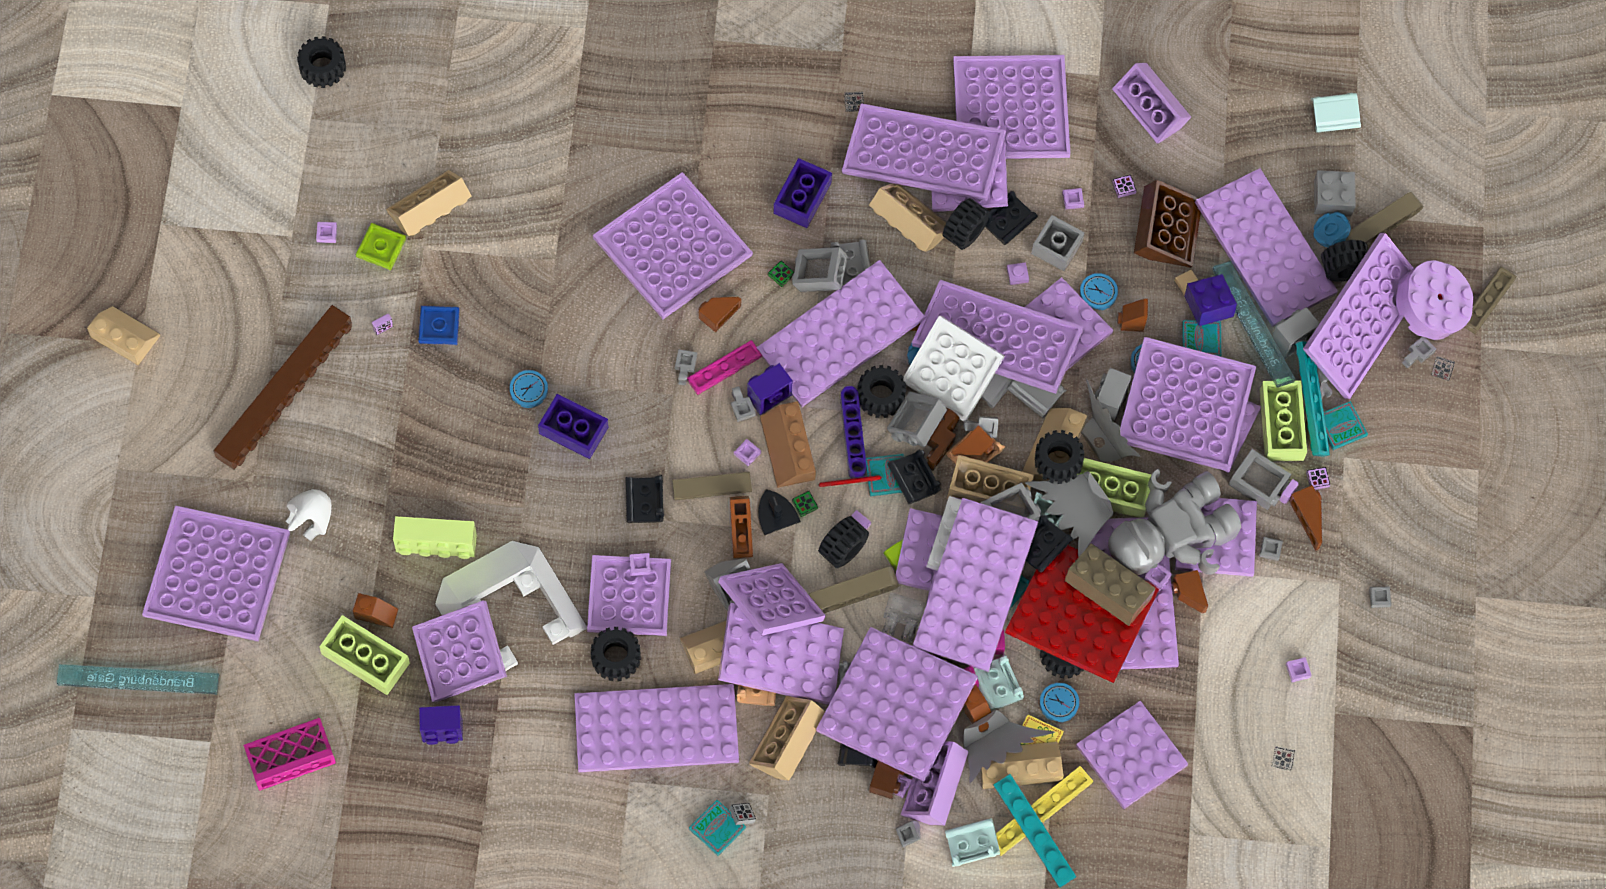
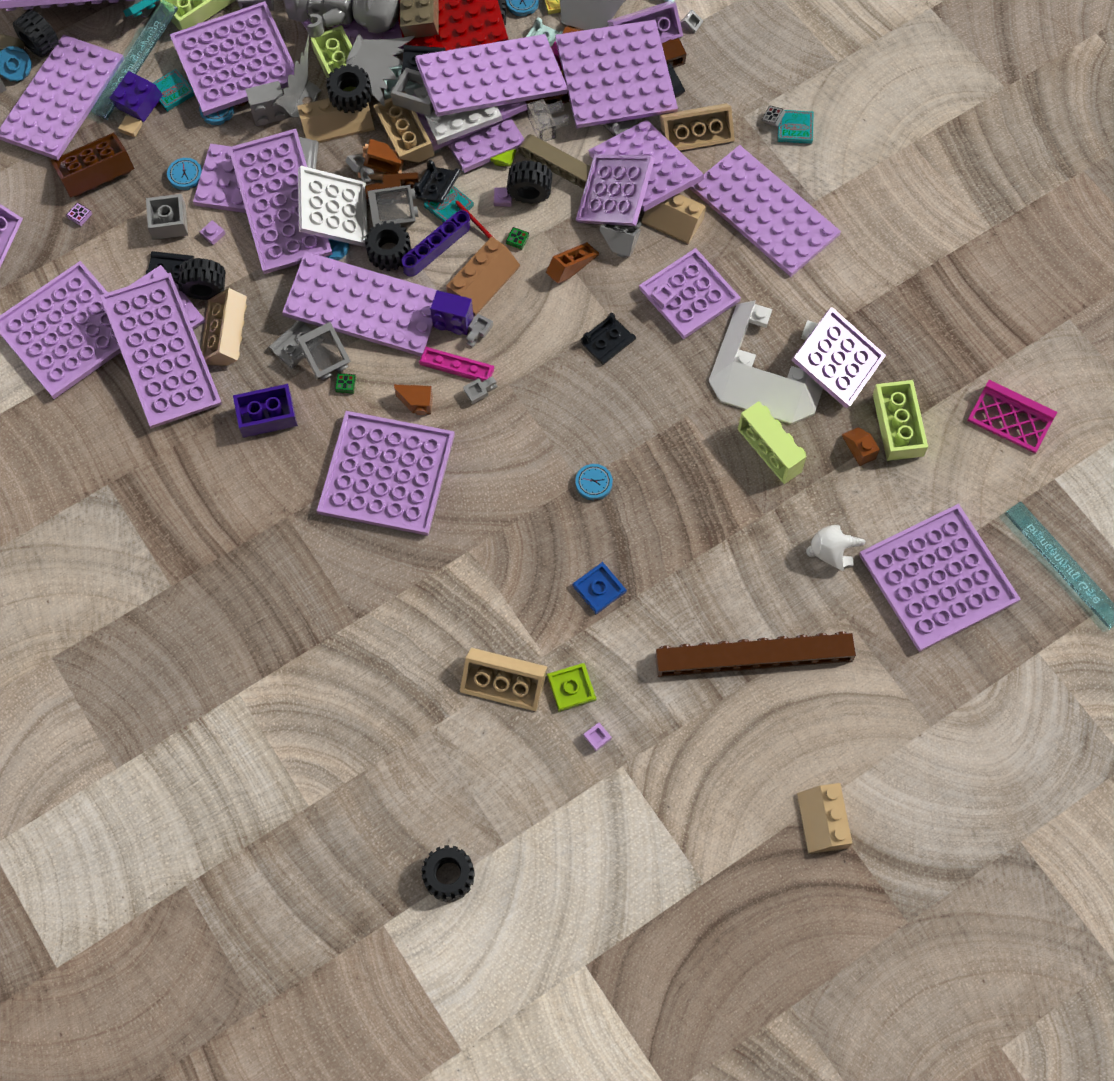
camera: 125 degrees left, 0 degrees up
(382, 324) = (637, 625): lavender tile -> none
(441, 724) = (899, 329): dark purple brick -> none
(573, 426) = (599, 421): dark purple brick -> none
(615, 669) = (745, 254): black tyre -> none
(712, 486) = (558, 304): dark tan tile -> none
(747, 452) = (511, 301): lavender tile -> none
(776, 512) = (539, 253): black shield -> none
(853, 101) = (149, 441): clear tile -> none
(1073, 198) = (117, 239): lavender tile -> none
(1133, 316) = (188, 131): dark orange slope -> none
(1294, 330) = (119, 29): light grey brick -> none

